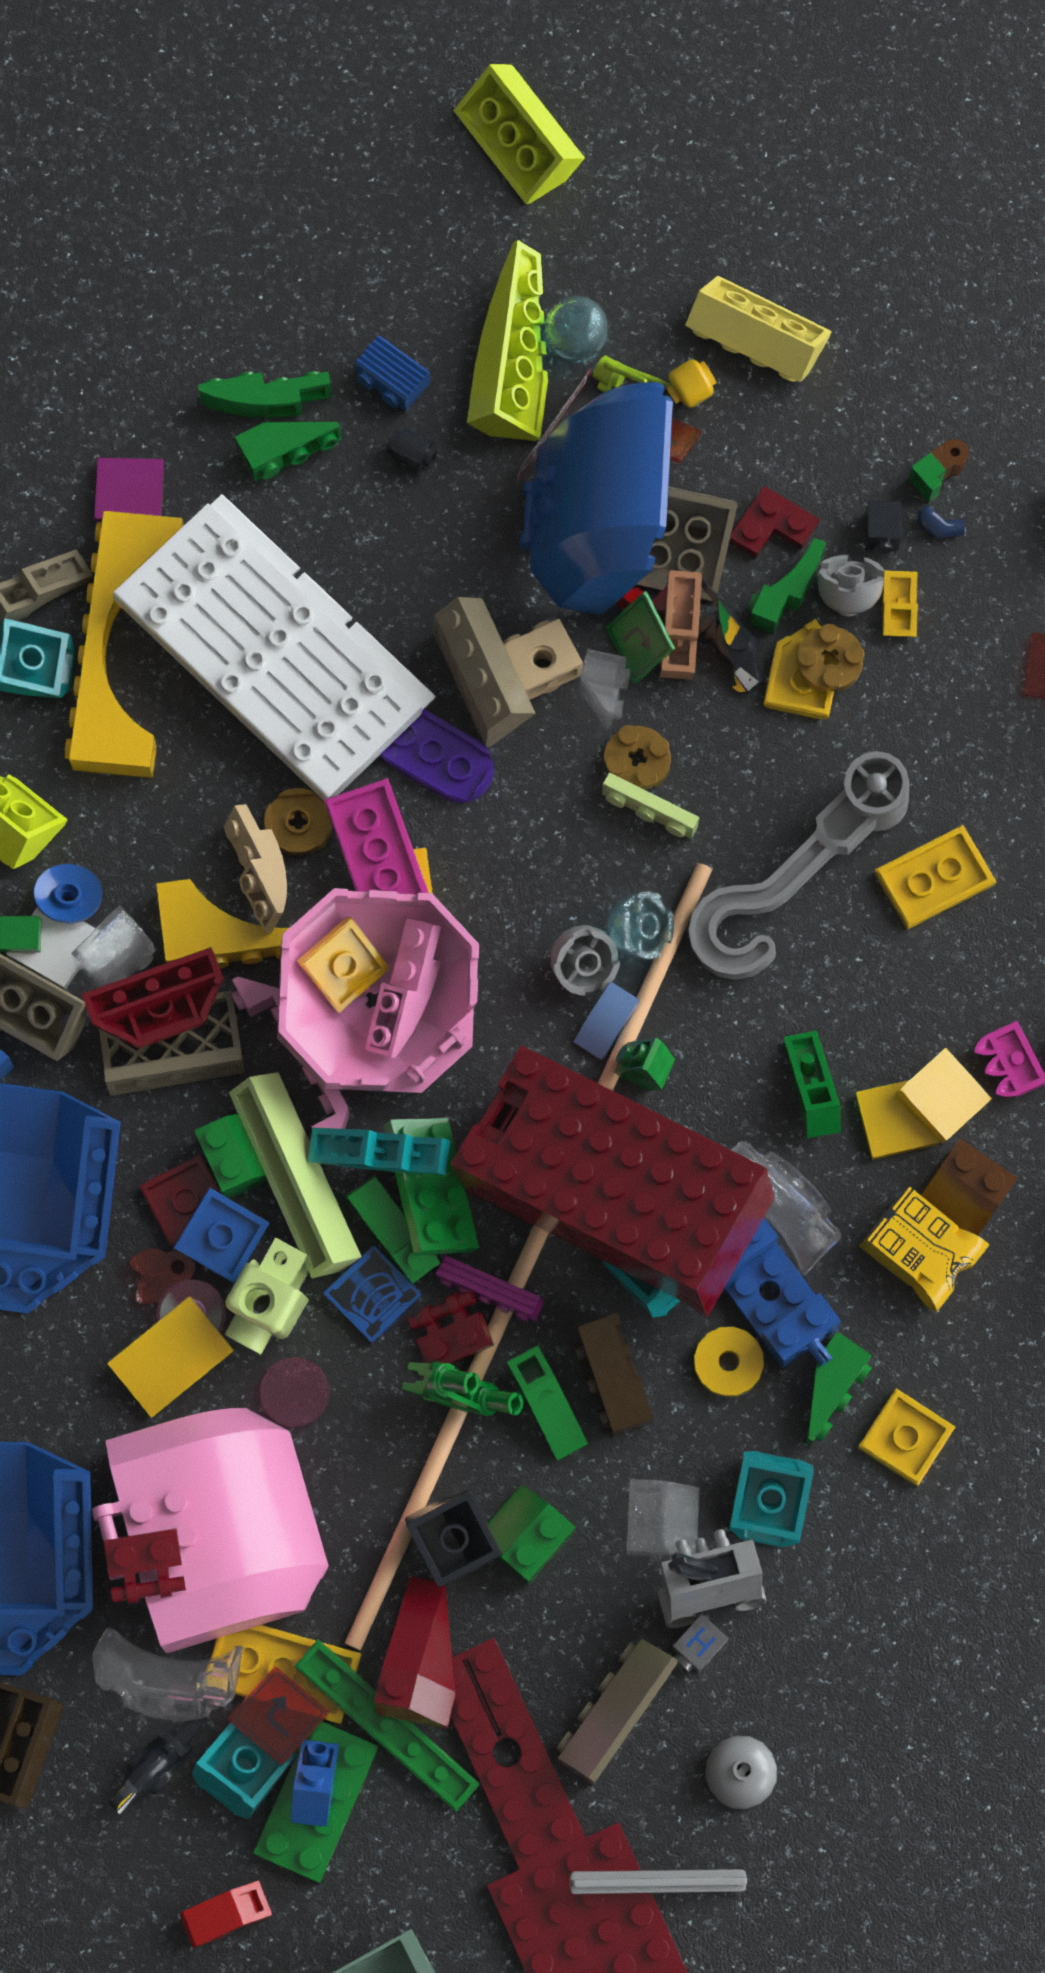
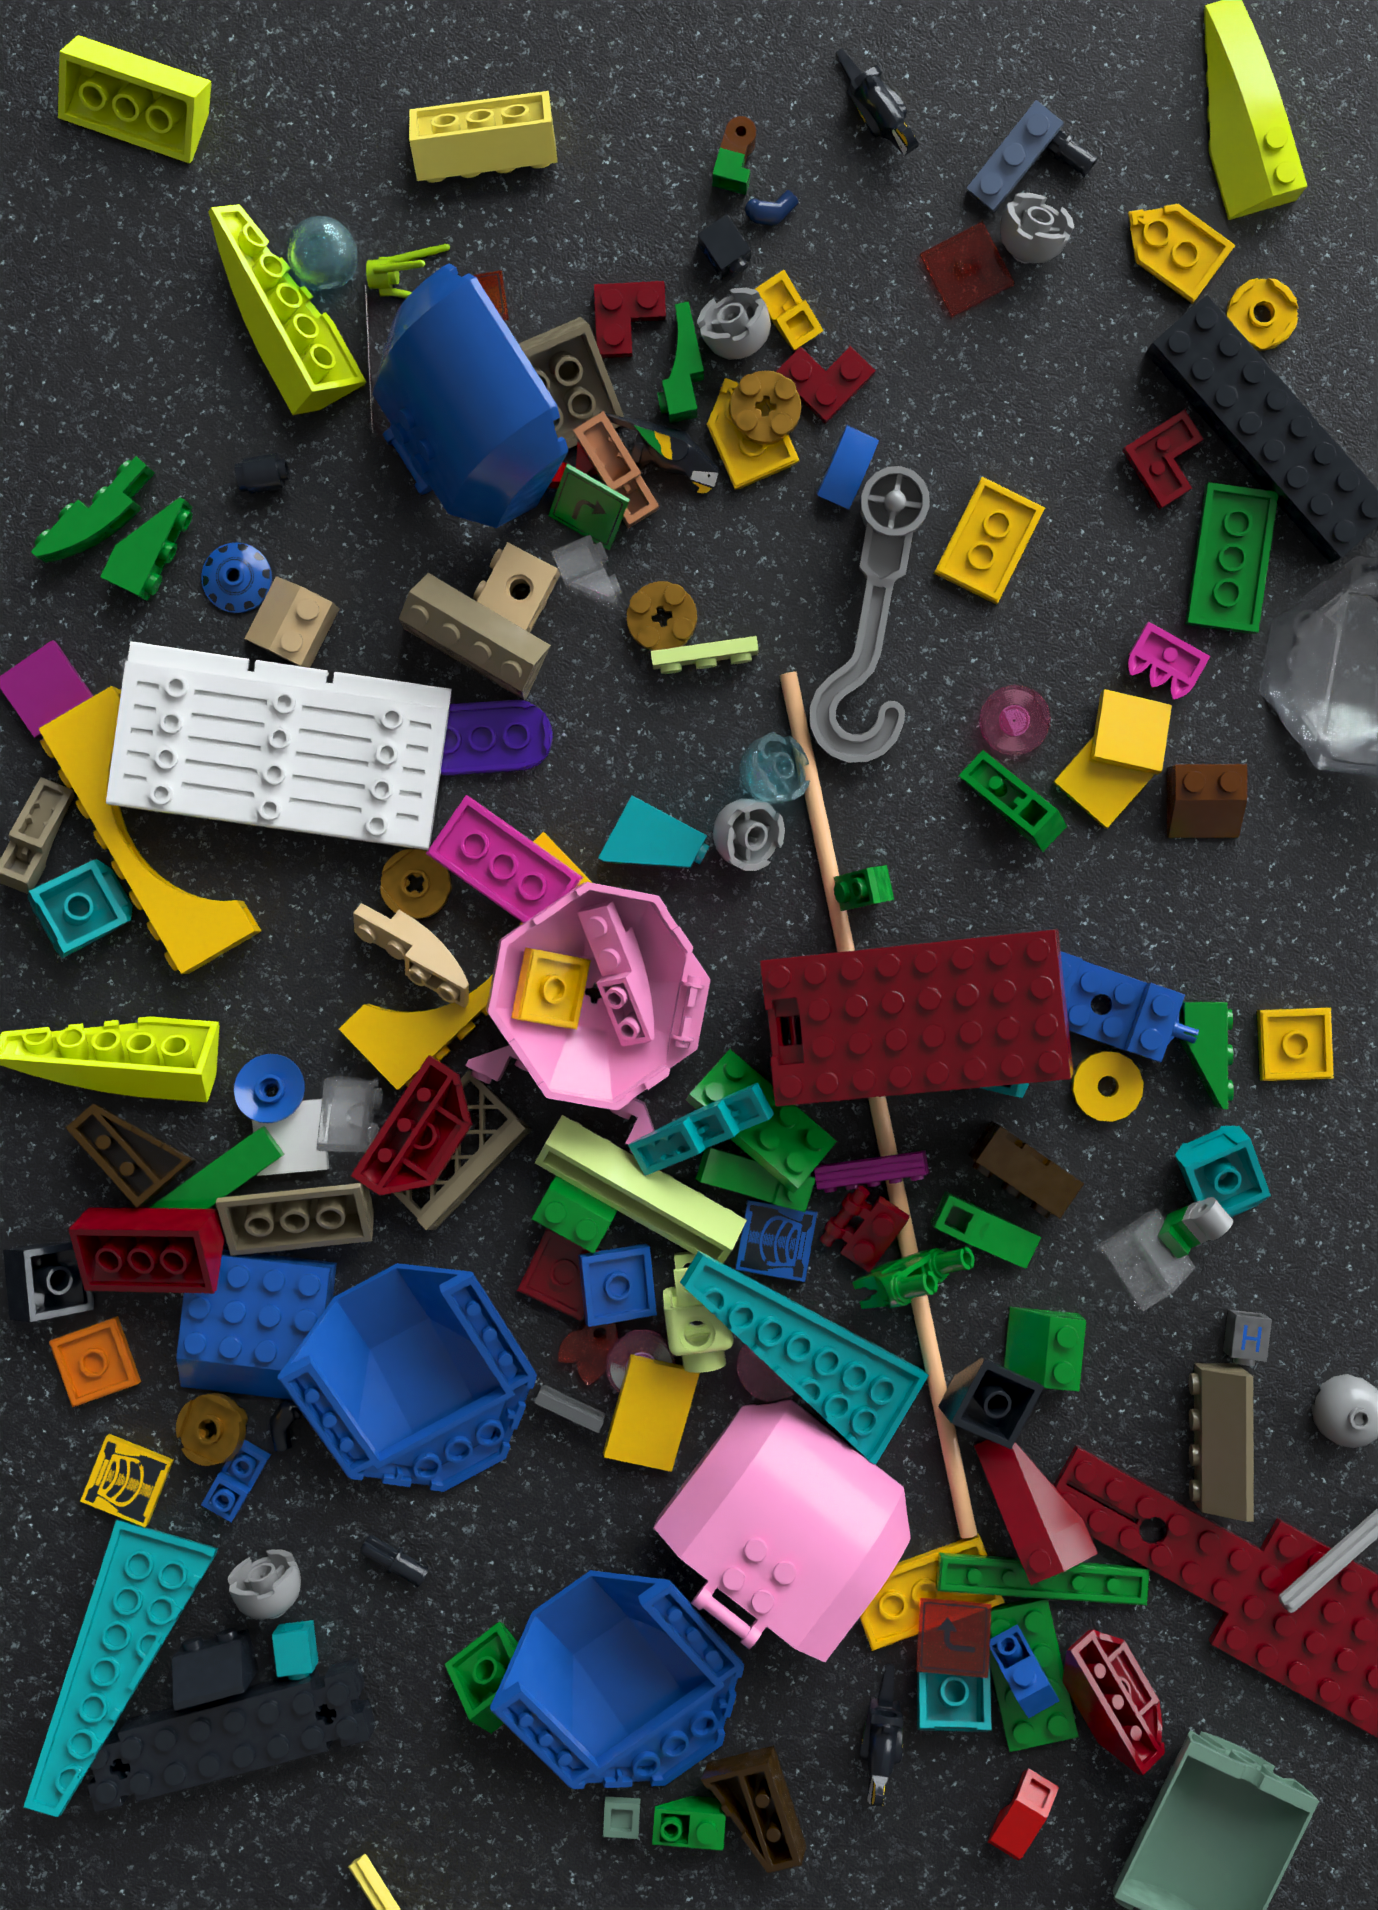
camera: 35 degrees left, 15 degrees up
(110, 1307) = (570, 1408): none -> dark grey tile
(140, 1554) = (764, 1615): dark red plate -> none
(165, 1685) = (850, 1673): clear windscreen -> none
(335, 524) = (252, 584): none -> blue dish
(344, 1426) = (835, 1371): none -> teal wing
(353, 569) = (292, 622): none -> tan slope
(374, 1863) = (1115, 1699): none -> dark red wedge
(391, 374) = (191, 415): blue brick -> none
(505, 915) = (653, 839): none -> teal slope
(606, 1021) = (802, 870): medium blue slope -> none
(691, 383) = (461, 233): yellow head -> none
(710, 1579) = (1231, 1290): light grey piece -> none
(713, 1515) = (1194, 1225): none -> leg
(797, 1210) = (1074, 911): clear windscreen -> none
(858, 1025) = (1014, 720): none -> clear pink tile
(871, 737) = (847, 467): none -> blue slope
(893, 683) = (830, 389): none -> dark red plate
(923, 1247) = (1202, 877): yellow piece -> none

